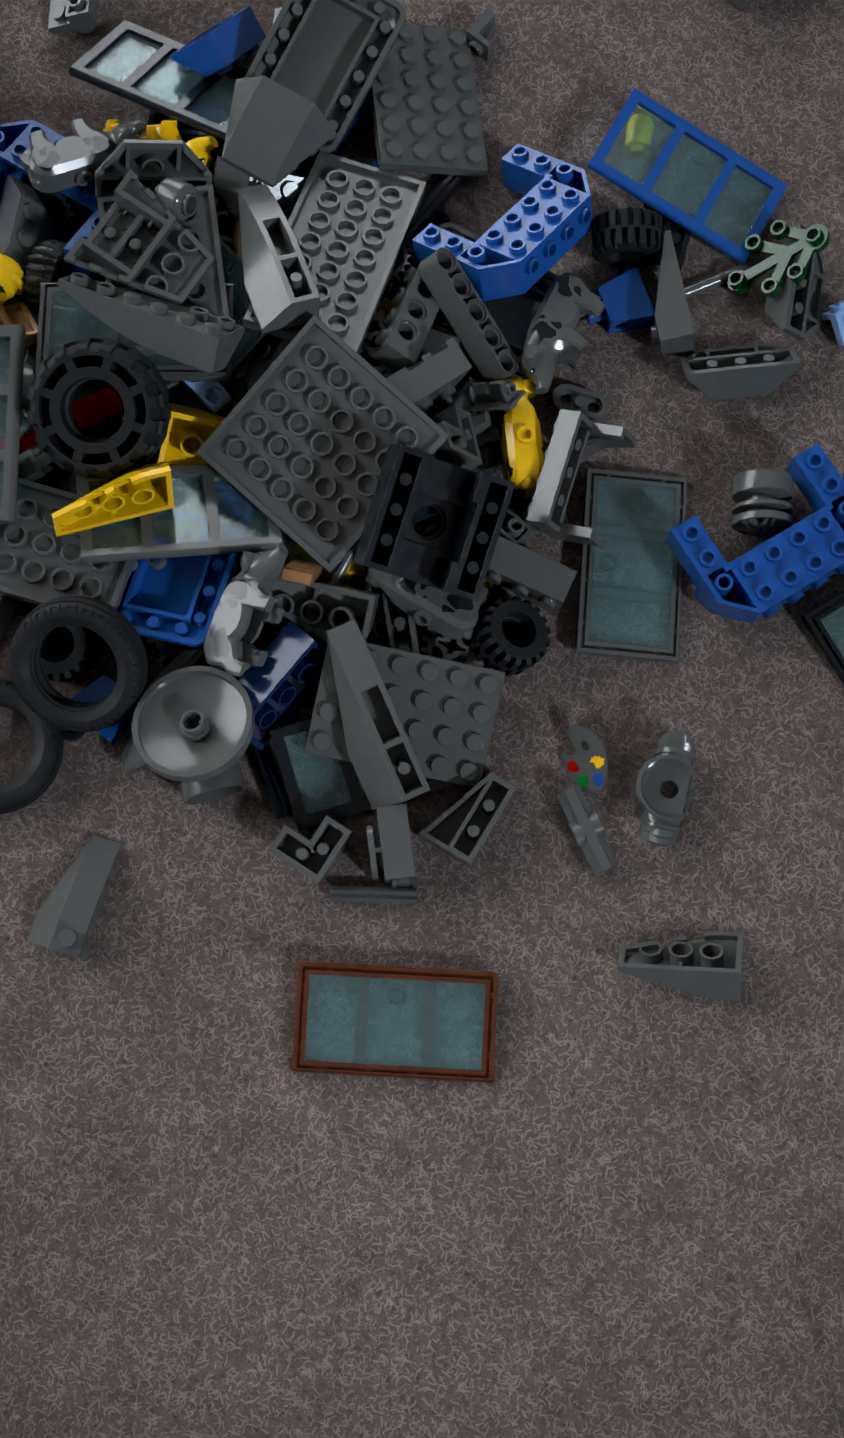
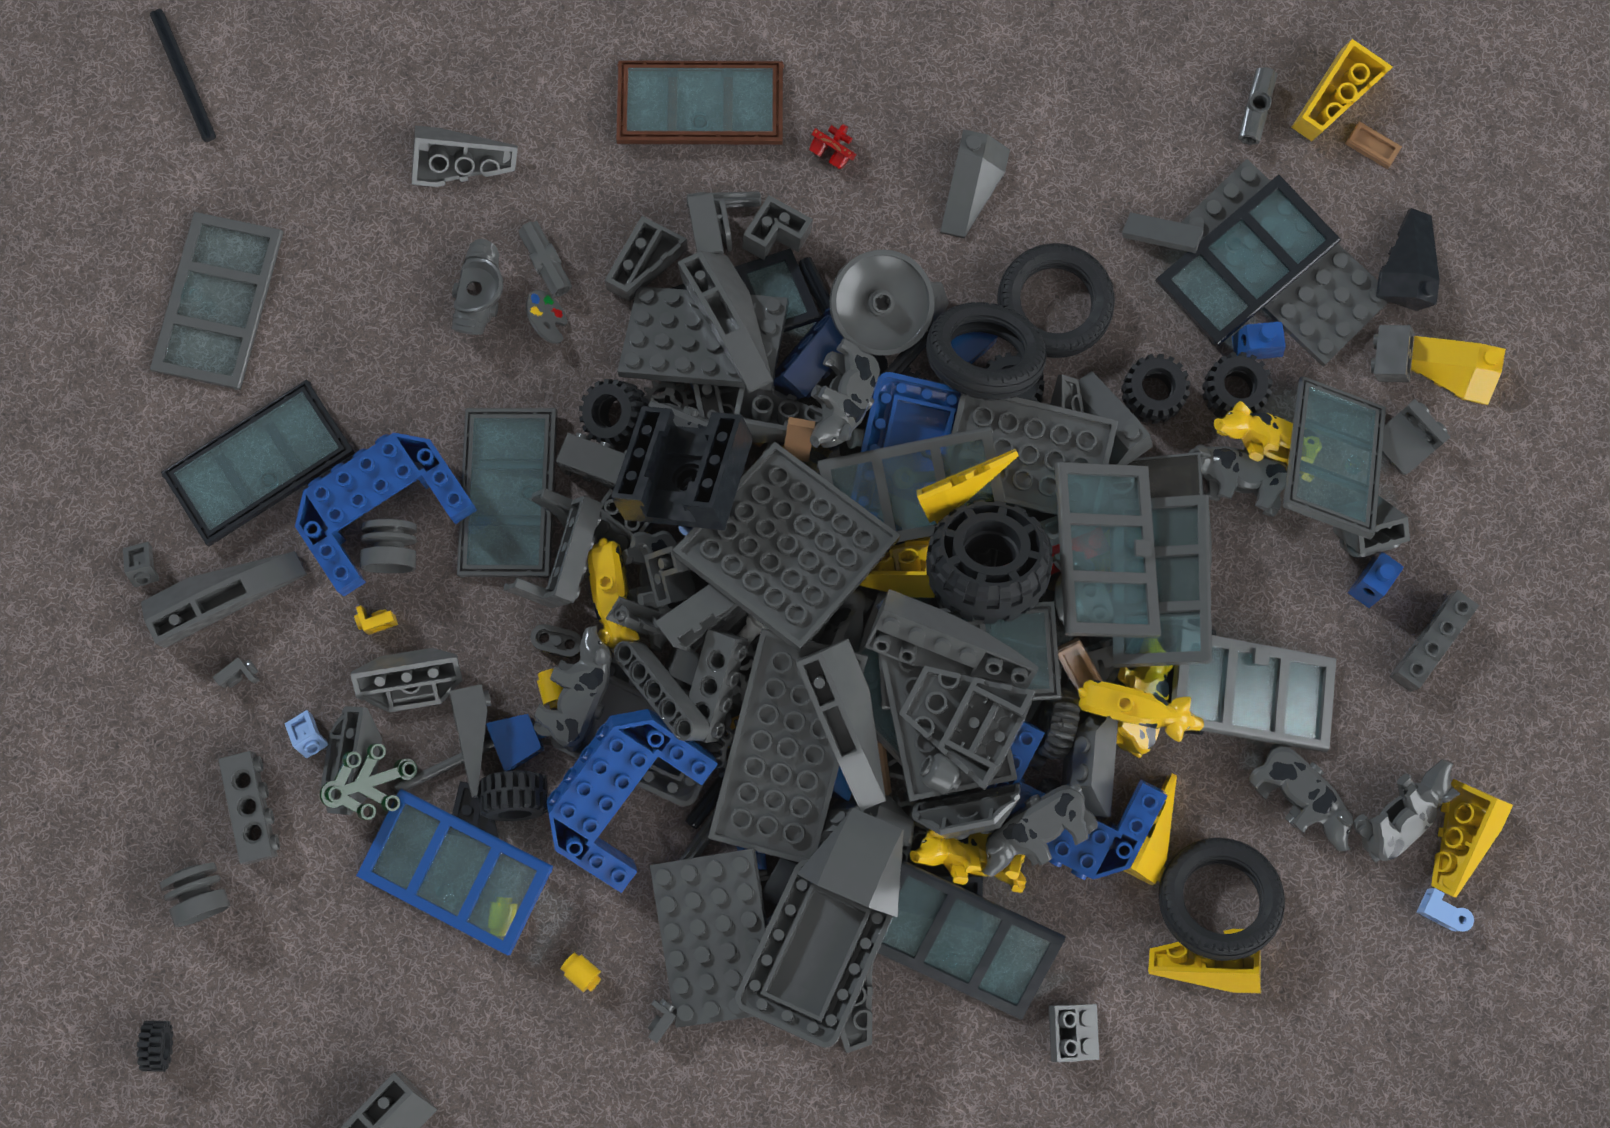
camera: 175 degrees right, 0 degrees up
(222, 45) = (921, 981): blue slope -> none
(236, 958) = (822, 141): none -> red hips
(357, 143) = (778, 880): none -> black tyre
(560, 82) = (581, 972): none -> yellow brick
(590, 356) = (548, 689): none -> yellow brick
(771, 431) = (379, 621): none -> yellow bracket

